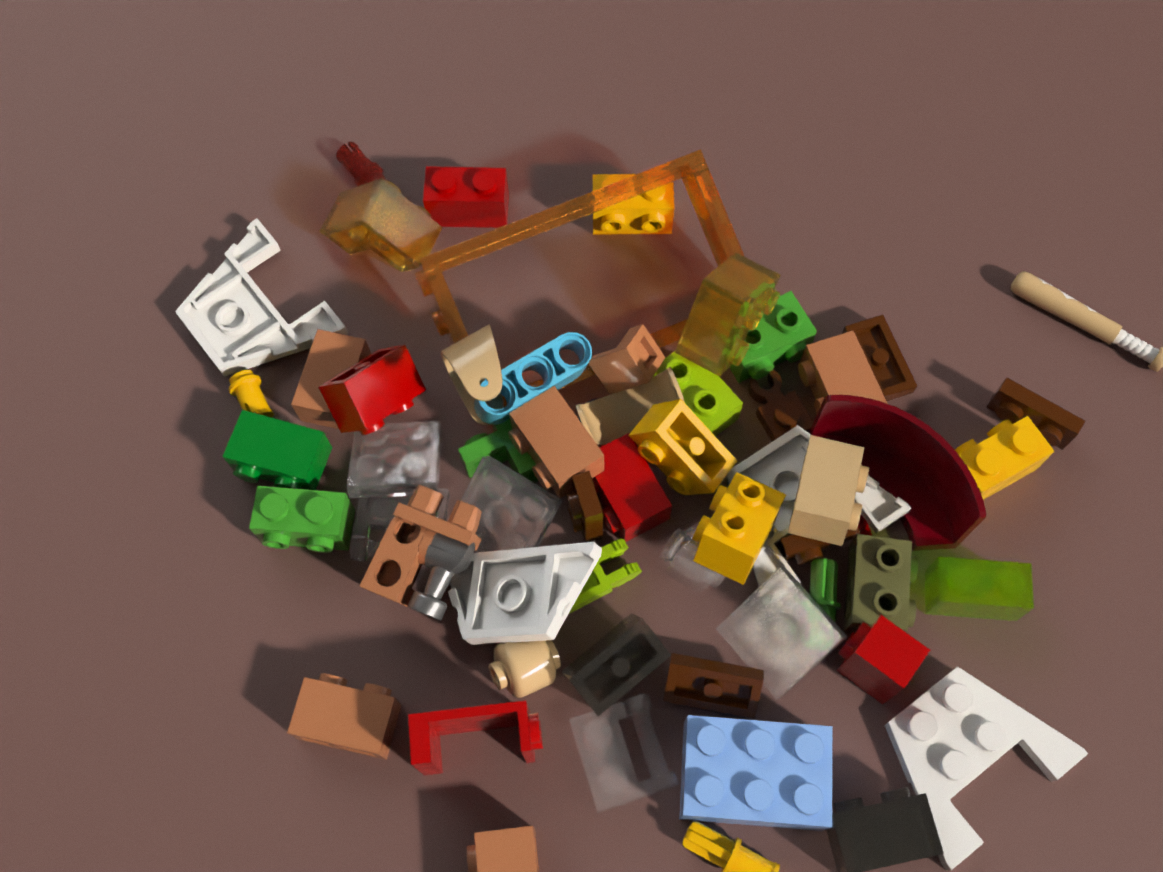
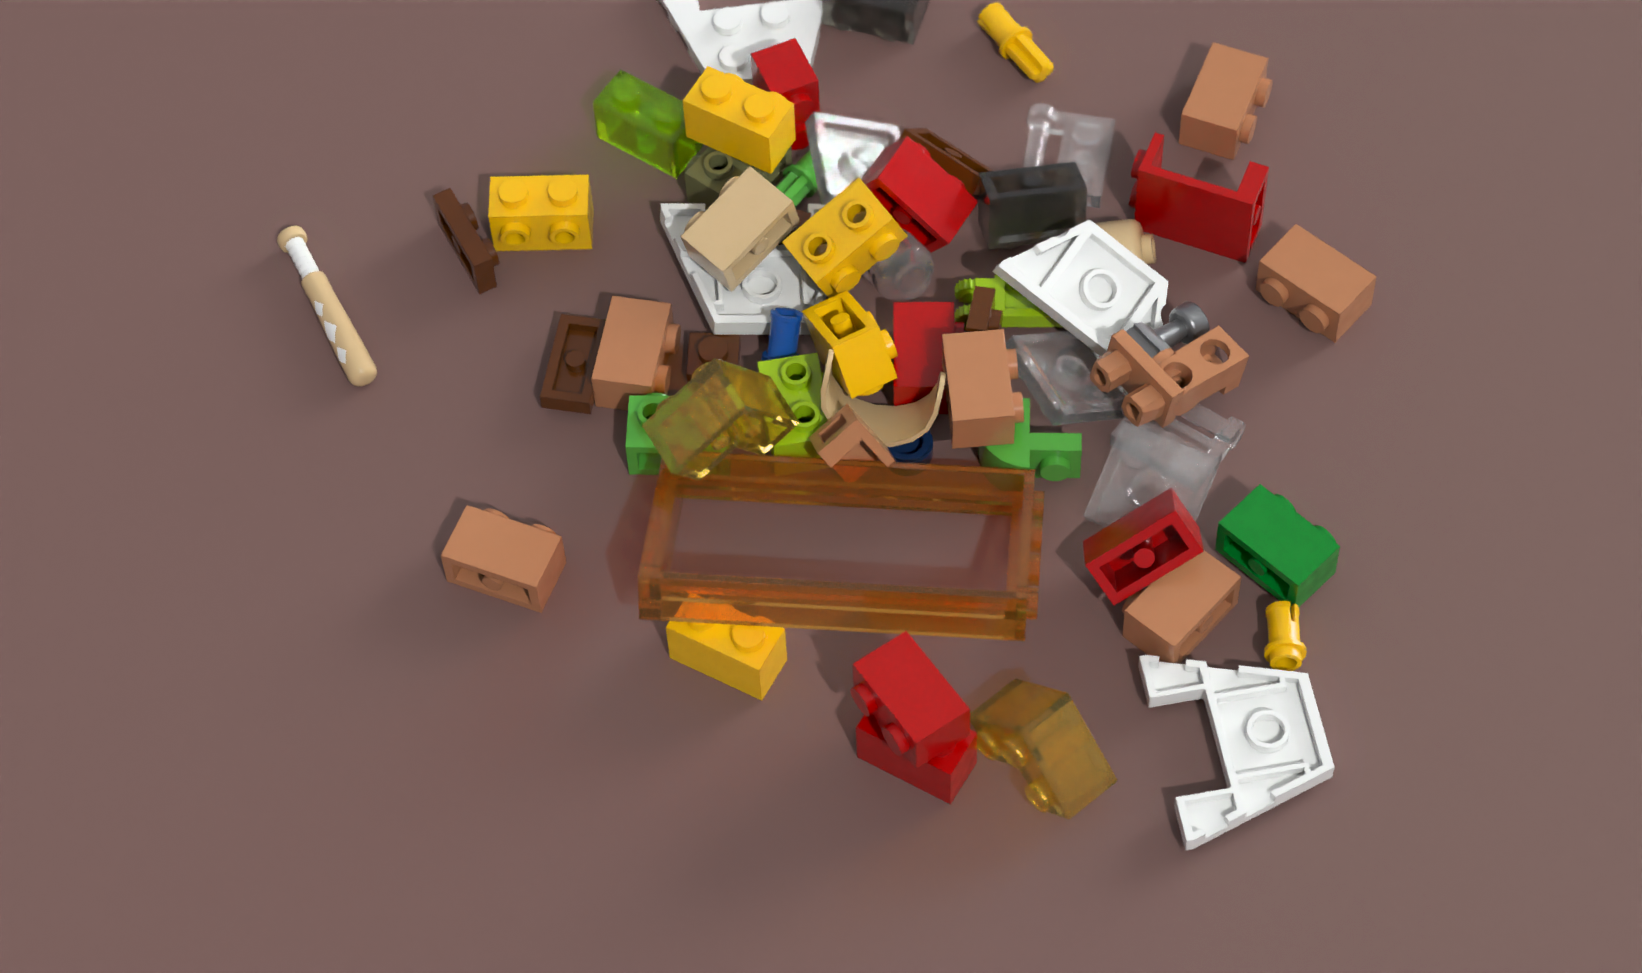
camera: 150 degrees left, 10 degrees down
(302, 518) = (1281, 464): bright green brick -> none
(358, 164) = (1020, 846): clear red pin -> none
(469, 173) = (909, 700): none -> red brick
(471, 363) = (1027, 447): tan piece -> none
(545, 362) = (968, 453): medium azure beam -> none
(714, 616) = (919, 193): none -> red brick
(739, 442) = (783, 333): none -> blue pin
(756, 773) = (956, 80): light blue brick -> none
(820, 194) = (504, 558): none -> nougat brick
(895, 583) = (739, 119): none -> yellow brick
(909, 464) = (641, 238): dark red panel -> none

